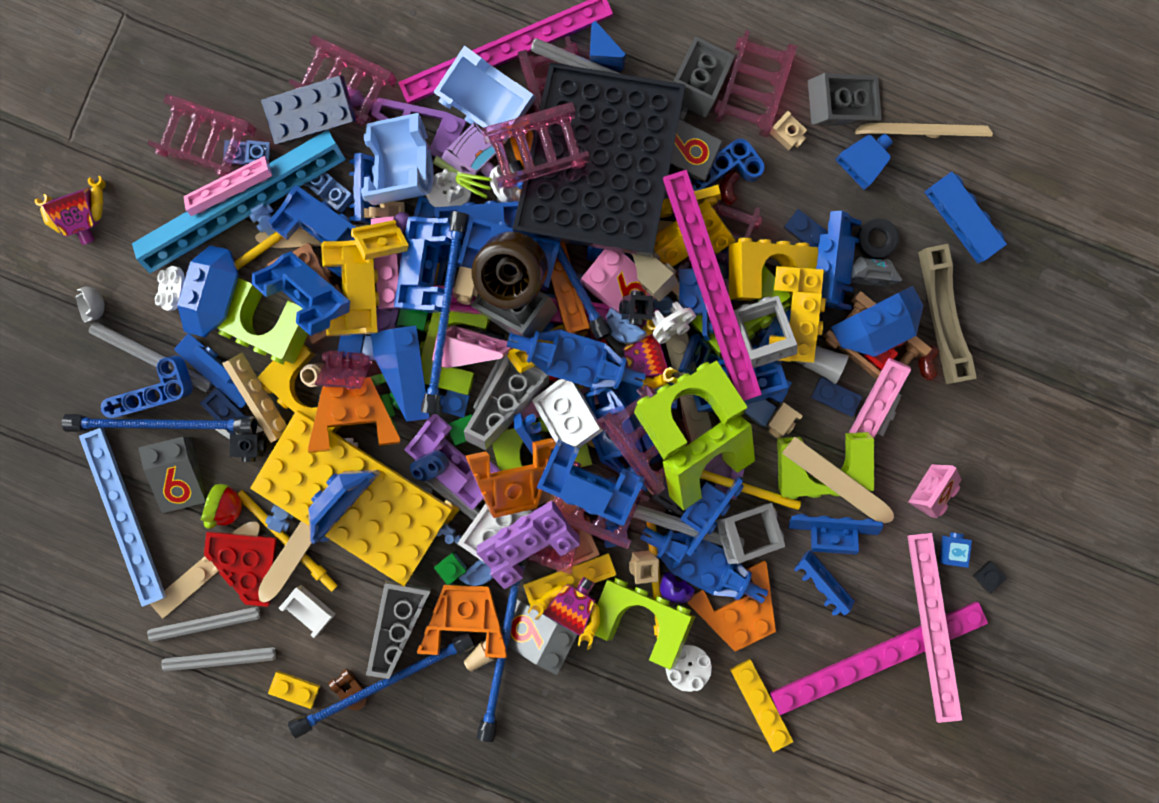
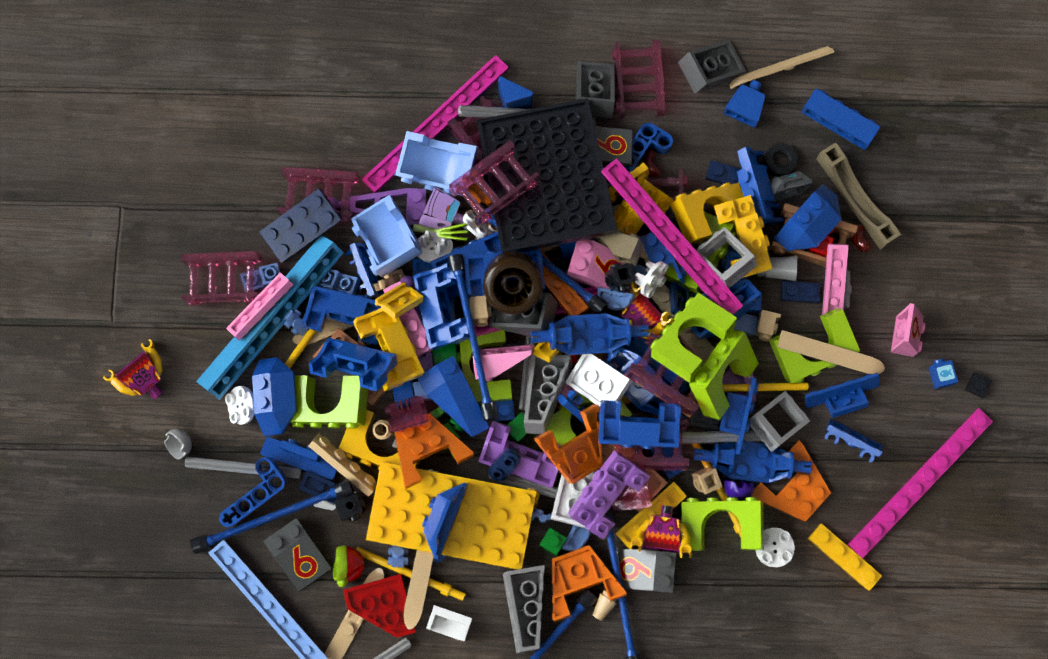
camera: 25 degrees left, 10 degrees down
(780, 131) = (677, 110): tan brick -> none
(934, 628) = (952, 439): bright pink plate -> none

